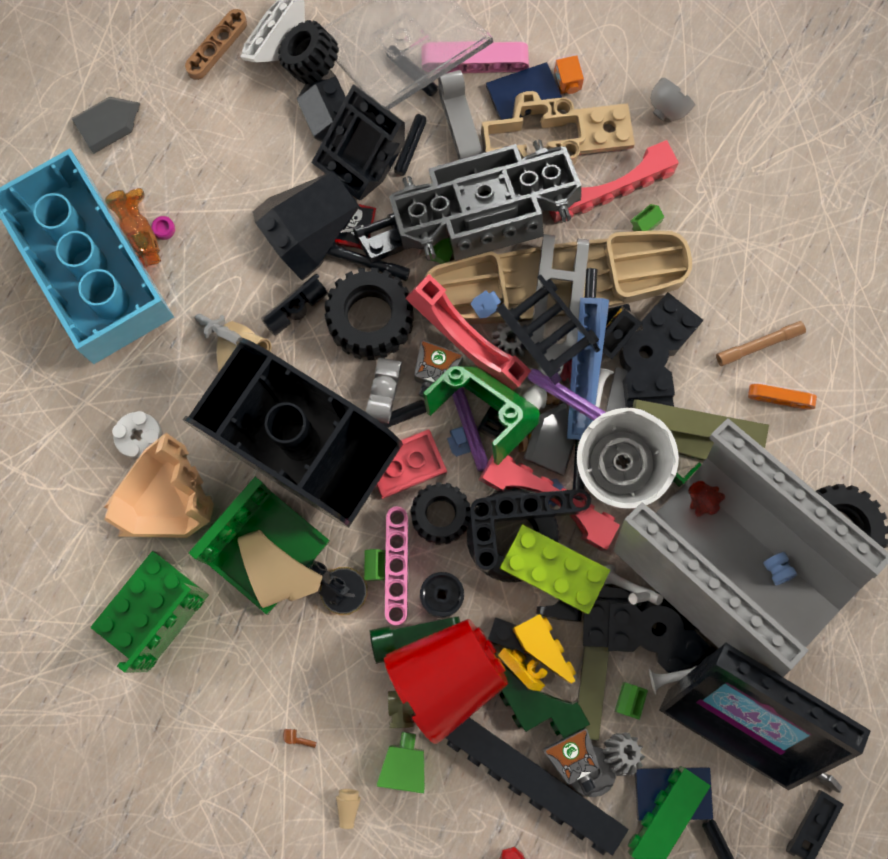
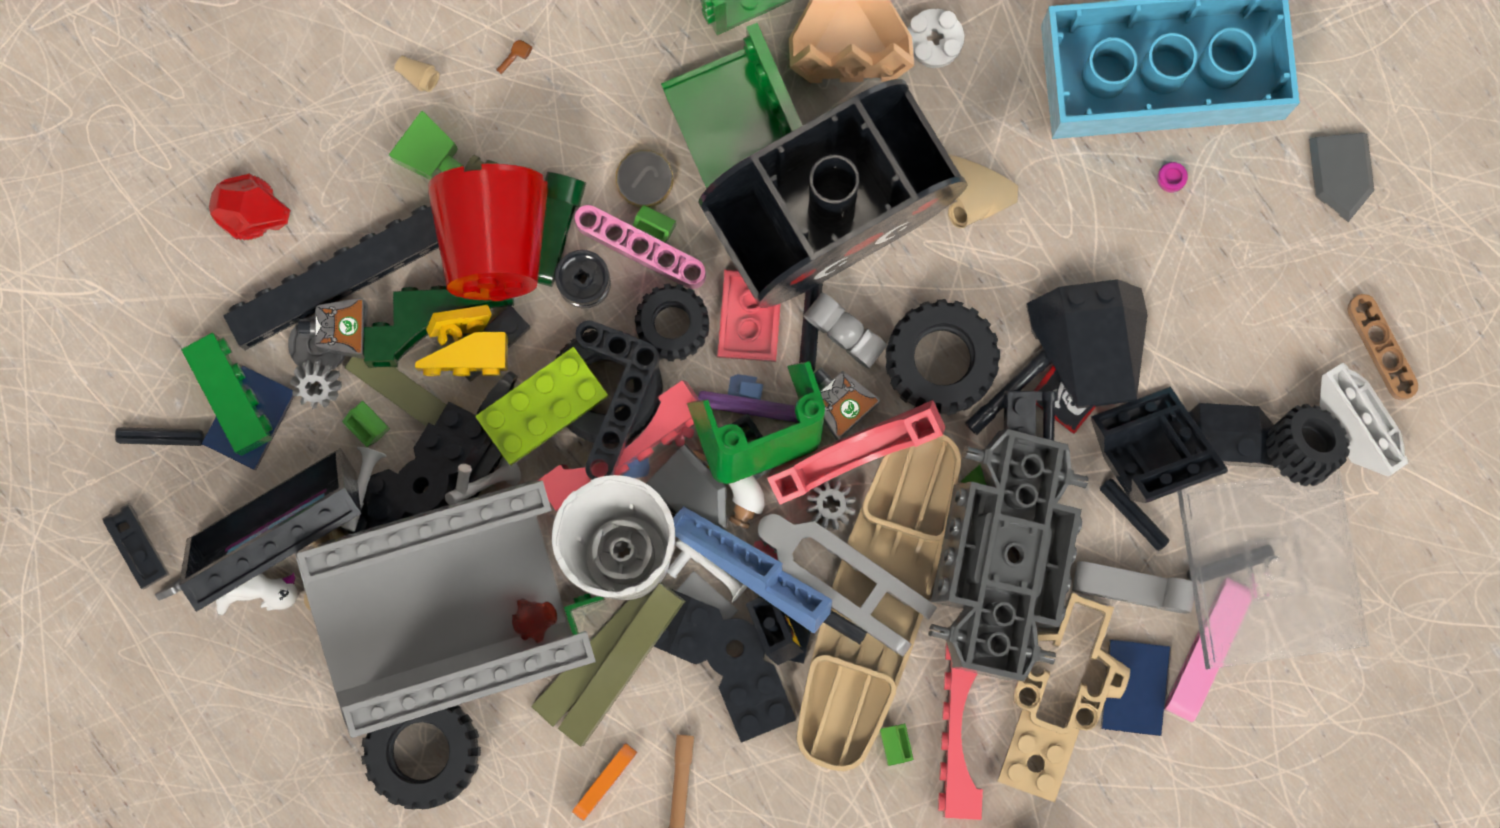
camera: 120 degrees right, 5 degrees up
(135, 225) = (1183, 145): clear orange piece -> none
(218, 327) = (1006, 183): light grey piece -> none
(273, 572) = (701, 107): tan panel -> none
(310, 291) = (990, 253): black panel -> none
(333, 586) = (675, 157): black hinge -> none
(485, 304) = (884, 493): medium blue piece -> none
(539, 349) = (822, 513): black fence -> none
(565, 395) = (725, 526): medium lavender axle -> none
(569, 74) = (1128, 751): orange brick -> none
(780, 568) = (413, 653): light blue wheel -> none

